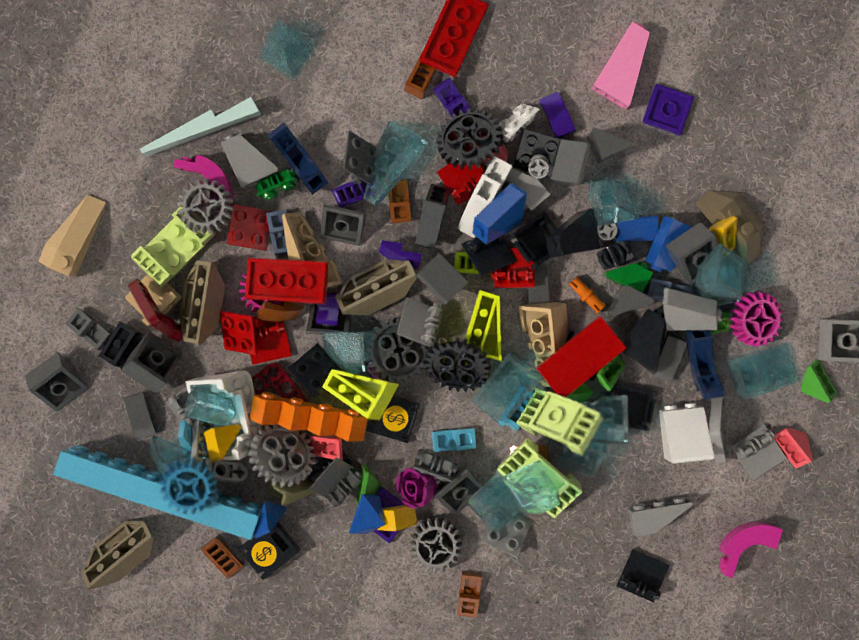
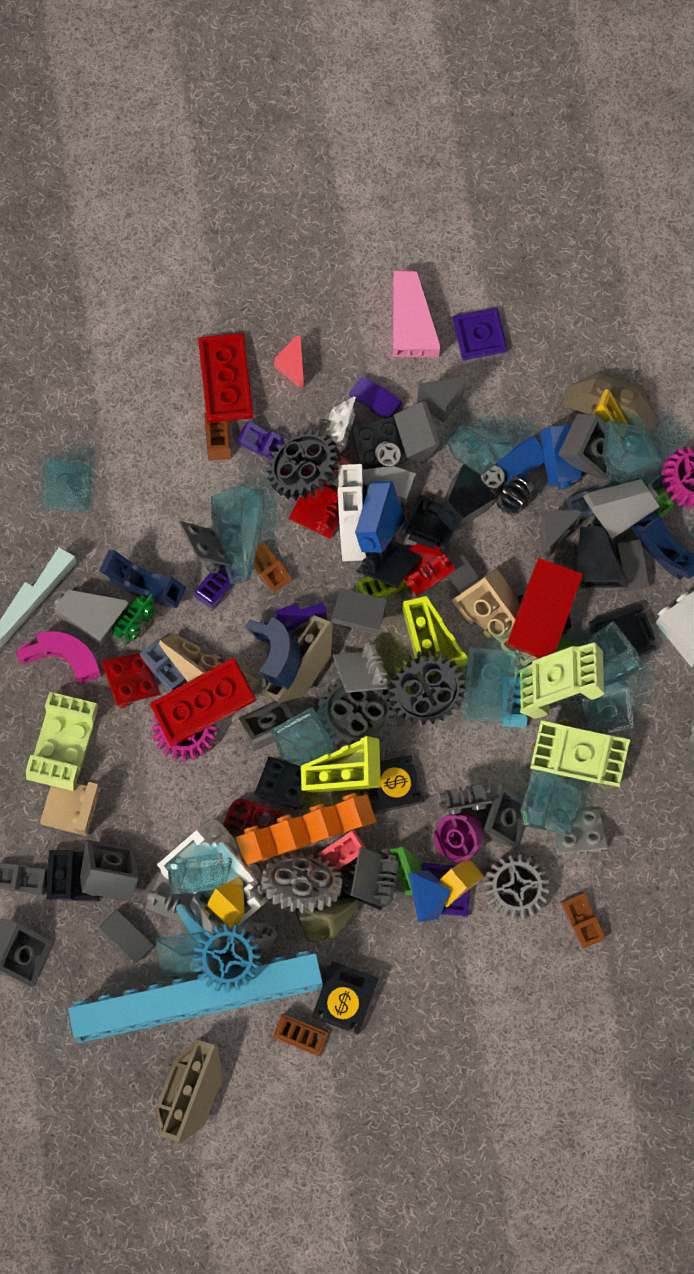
camera: 30 degrees left, 15 degrees down
(152, 314) = (85, 811): dark red beam -> none
(197, 207) = (63, 690): light grey gear -> none
(201, 302) = (123, 778): dark tan wedge -> none
(239, 332) = (182, 786): red hinge -> none
(268, 518) = (327, 955): blue slope -> none
(271, 342) = (215, 782): red hinge -> none
(277, 313) = (212, 742): dark orange slope -> none
(328, 312) = (263, 710): dark purple slope -> none
(342, 225) = (223, 620): dark grey slope -> none
(368, 278) = (284, 654): none -> dark blue arch
(432, 216) = (311, 561): black slope -> none
(453, 439) = (469, 770): medium azure slope -> none
(510, 49) = (290, 362): none -> coral slope
(533, 488) = (576, 762): clear light blue slope -> none
(587, 294) = (512, 550): orange pin -> none
(610, 373) = (582, 611): bright green slope -> none
(632, 275) = (547, 500): green slope -> none

